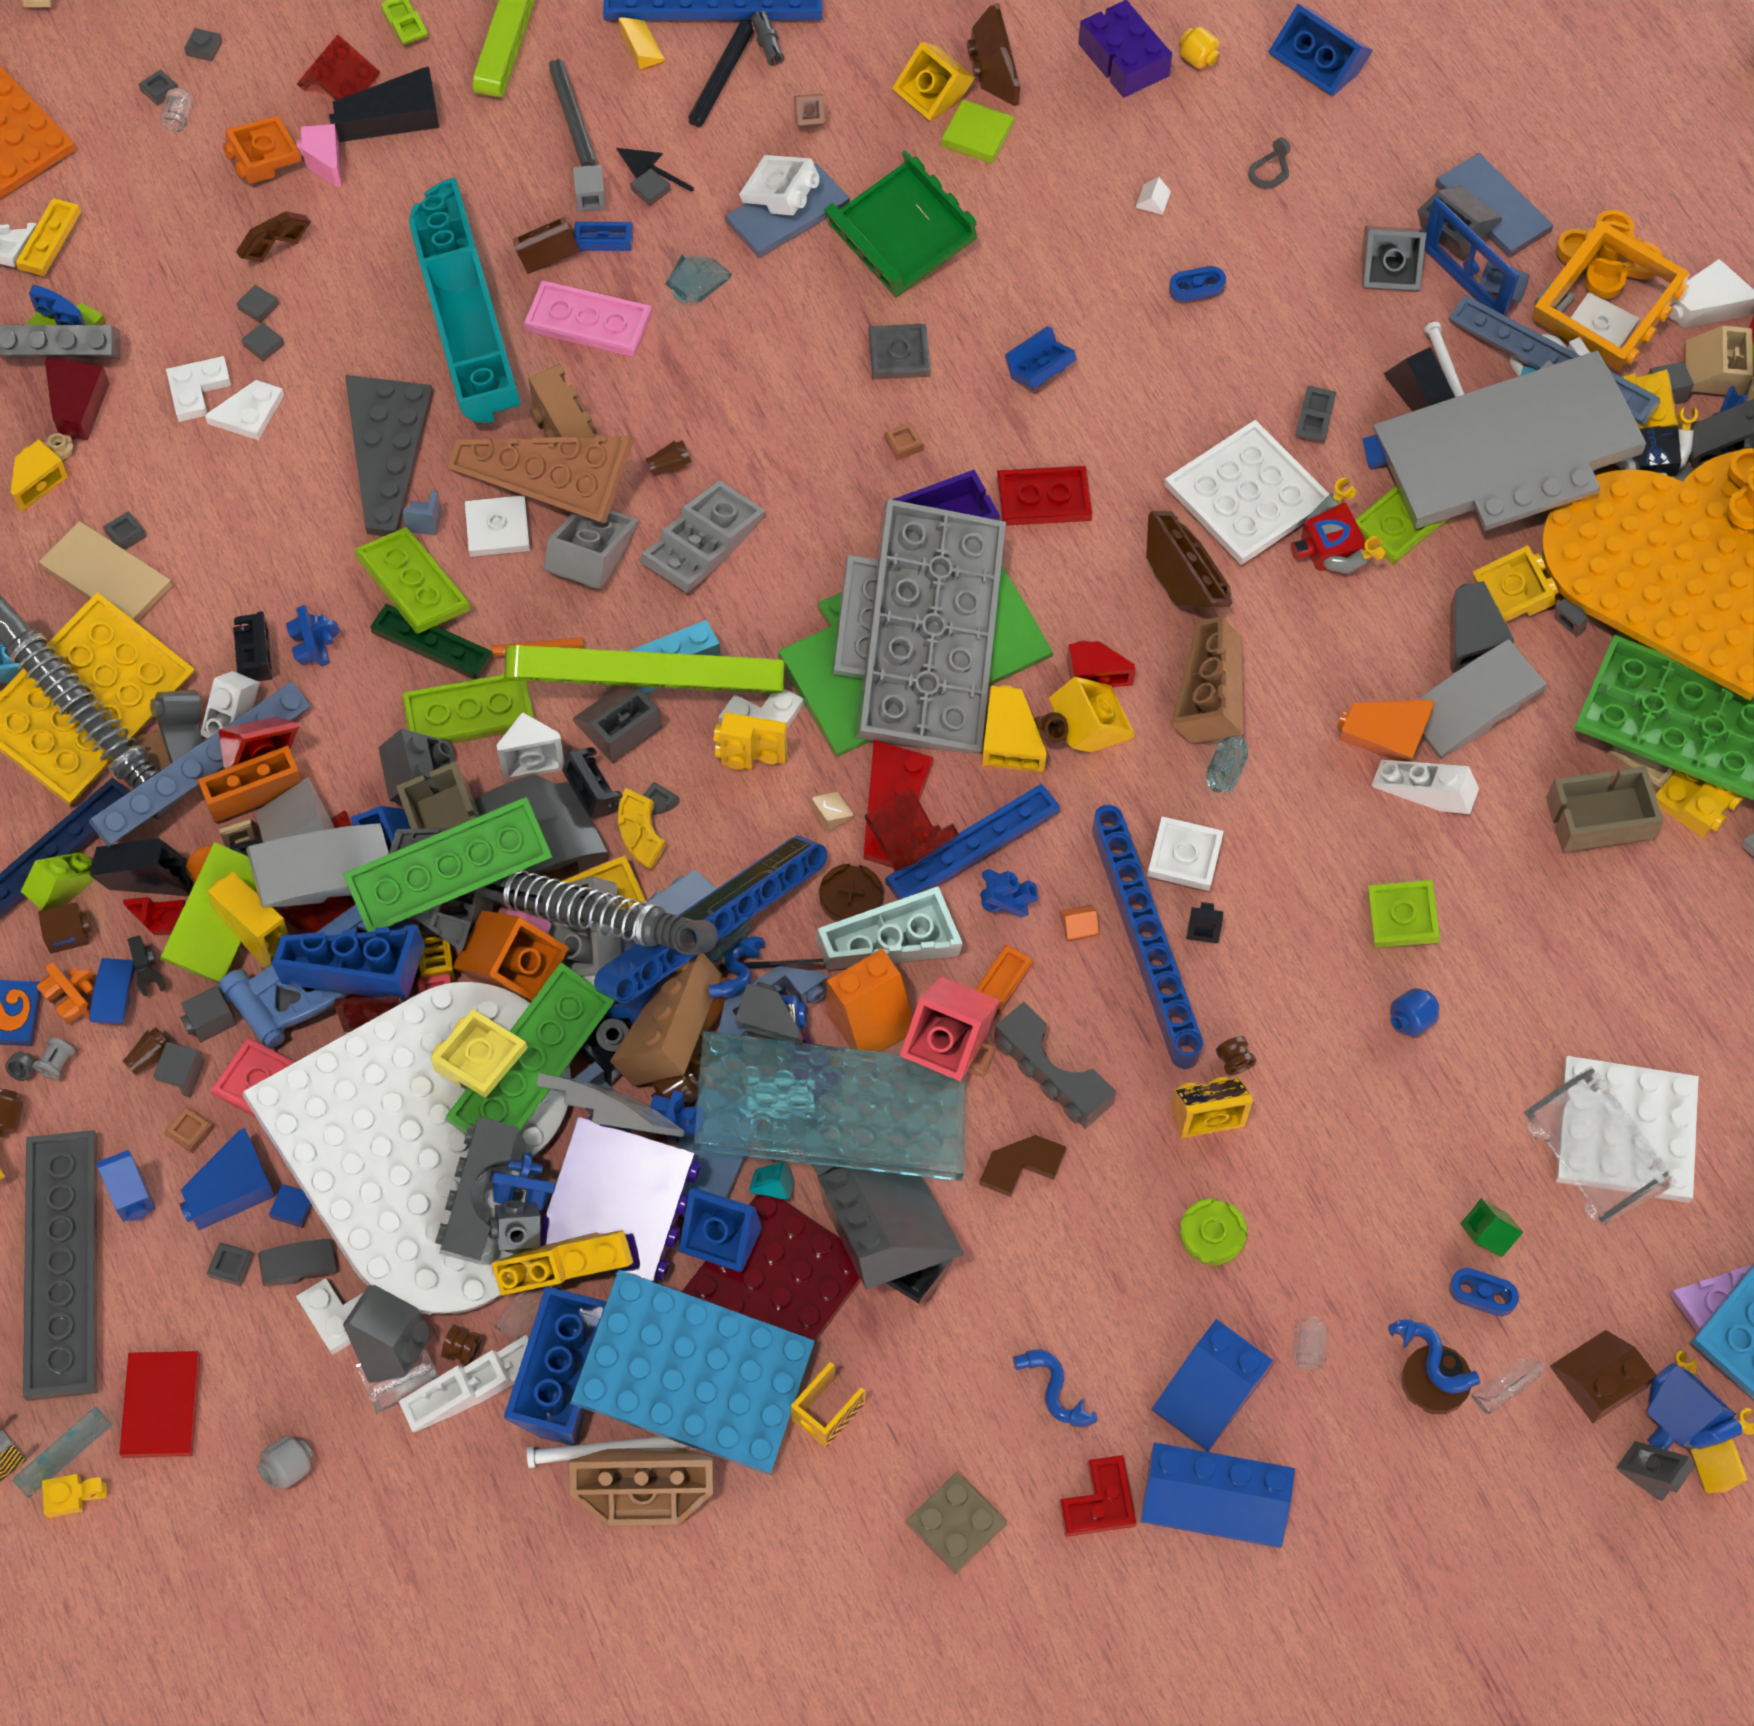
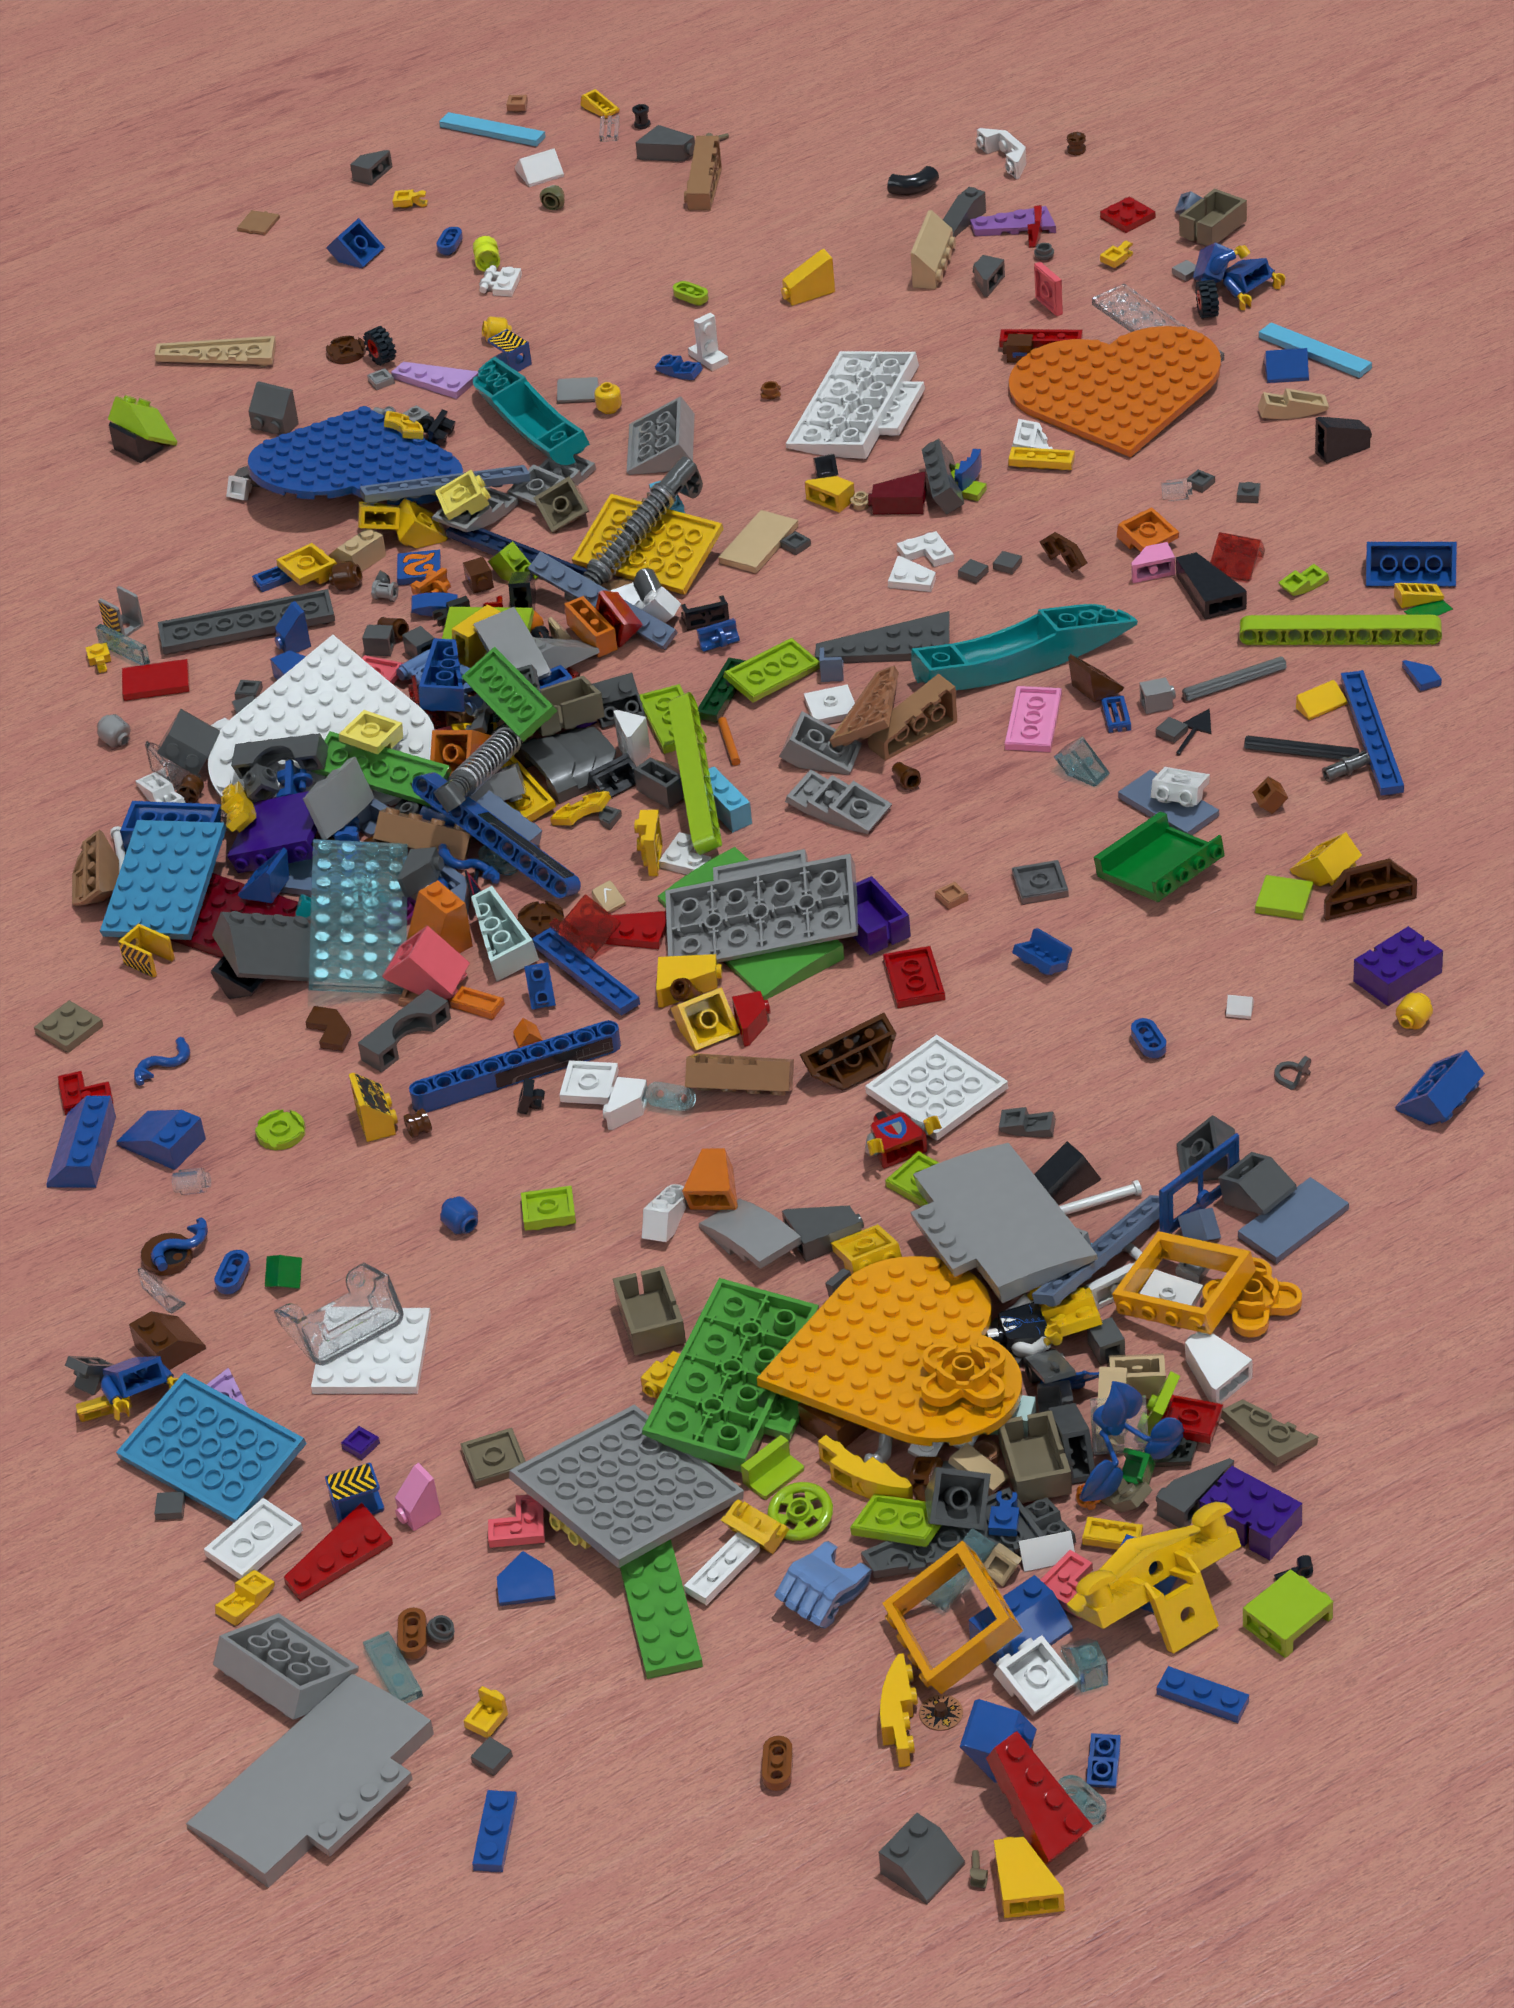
camera: 90 degrees right, 20 degrees down
(1232, 812) = (625, 1102): none -> white slope

